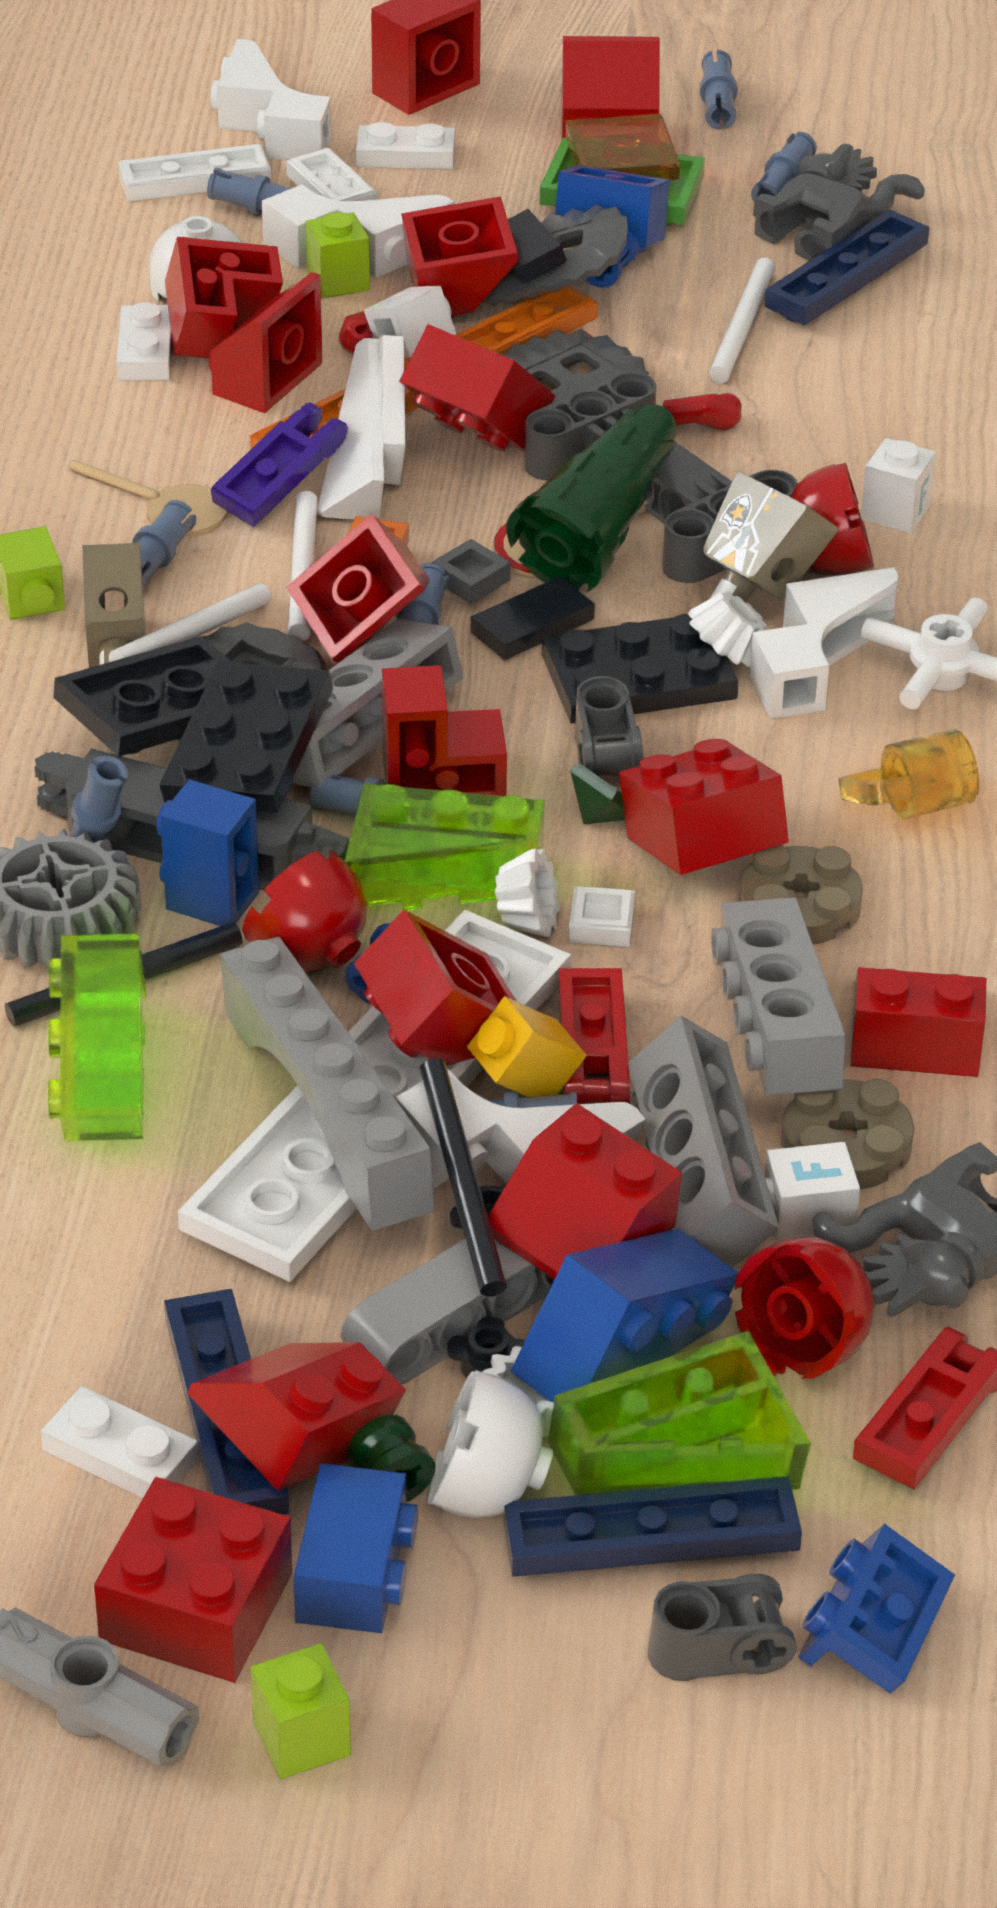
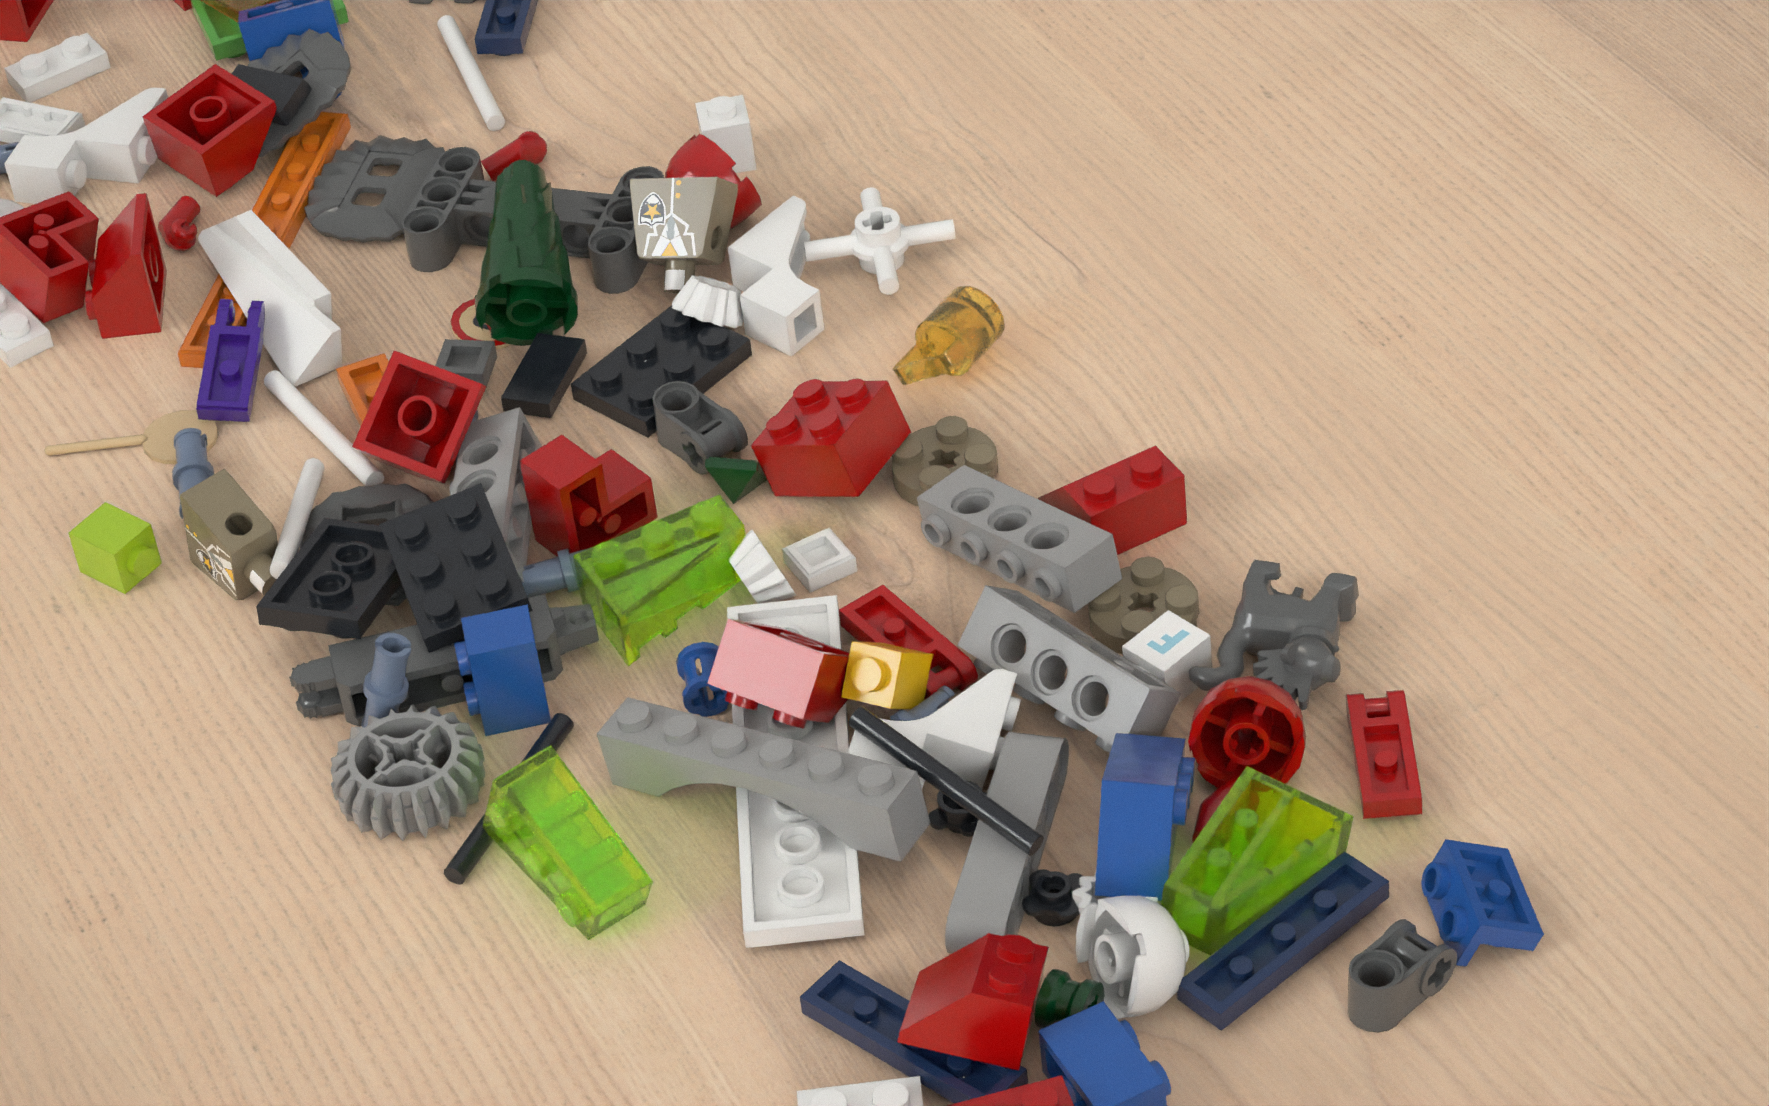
camera: 30 degrees left, 0 degrees up
(314, 910) = (630, 665): red cylinder -> none
(339, 253) = (104, 176): lime brick -> none
(409, 314) = (221, 194): white brick -> none
(473, 388) = (343, 223): red brick -> none
(582, 1191) = (1048, 747): red slope -> none

